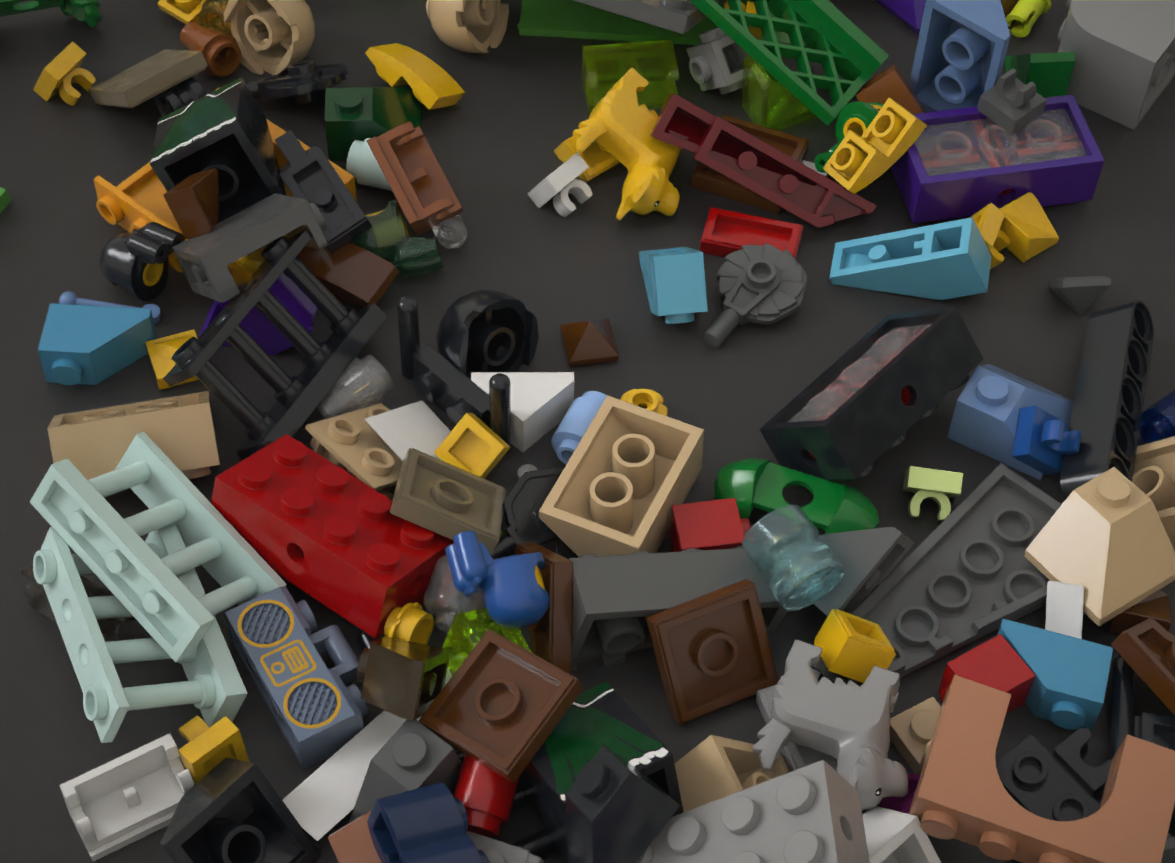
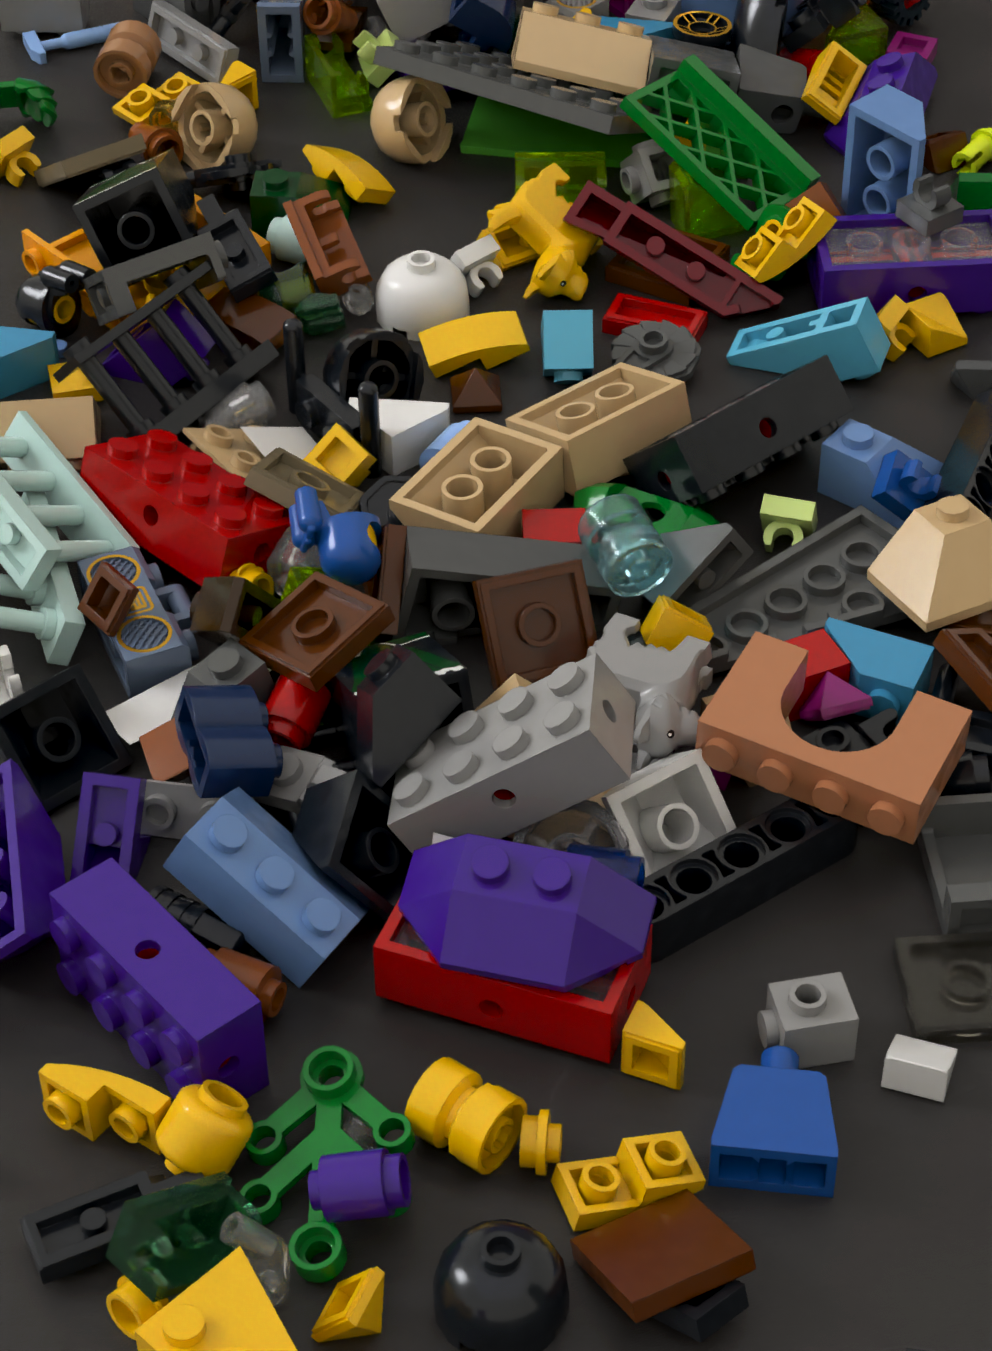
camera: 10 degrees right, 10 degrees down
(195, 203) = (109, 240): reddish brown slope -> none
(210, 745) = (42, 662): yellow tile -> none
(270, 671) = (108, 599): none -> reddish brown slope
(516, 228) = (420, 293): none -> white cylinder
(577, 279) = (484, 336): none -> yellow slope
(731, 381) = (606, 421): none -> tan slope
(1027, 719) = (833, 699): none -> magenta slope
(1064, 608) = (897, 614): white sticker -> none

